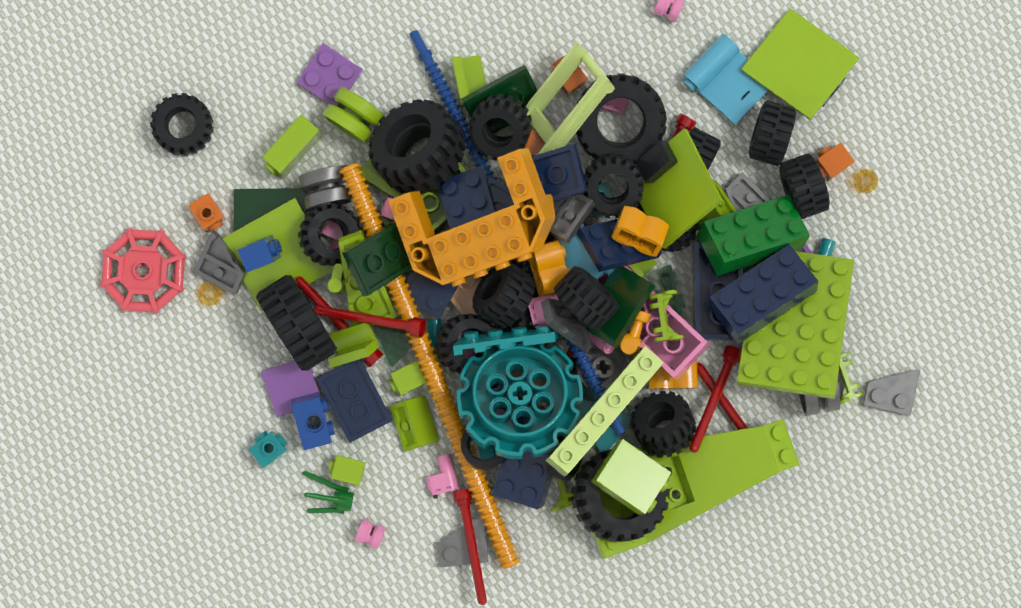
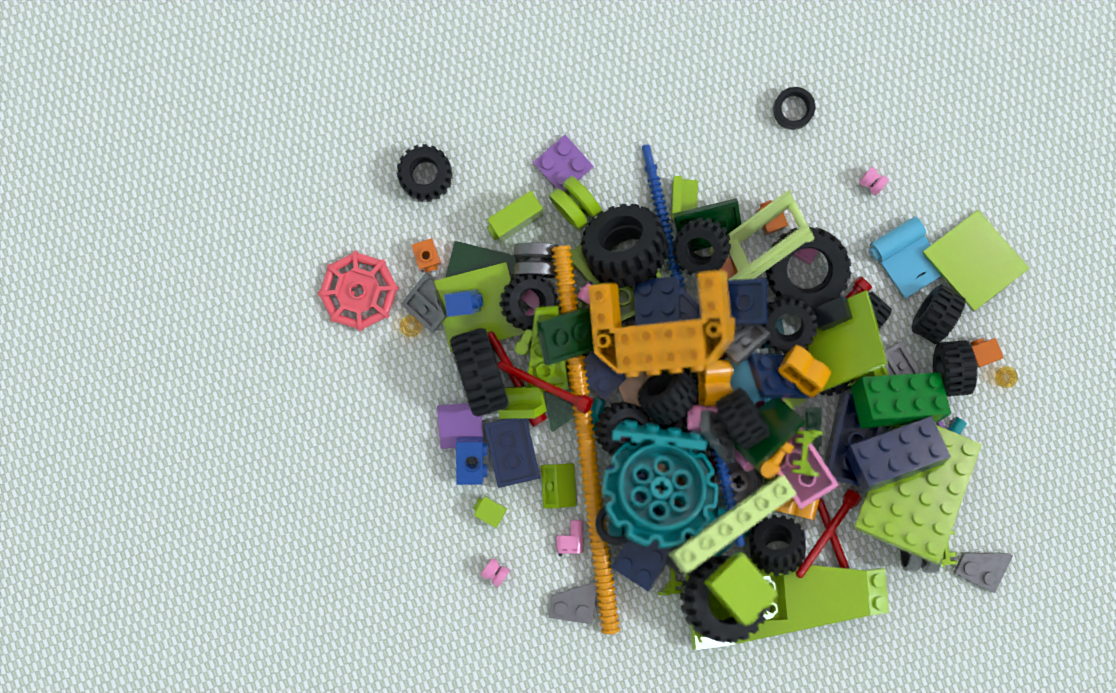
camera: 15 degrees right, 0 degrees up
(268, 448) = (426, 474): teal brick -> none
(341, 500) = (476, 538): green plant -> none
(407, 379) = (562, 445): lime brick -> none
(463, 500) = (584, 564): red piece -> none

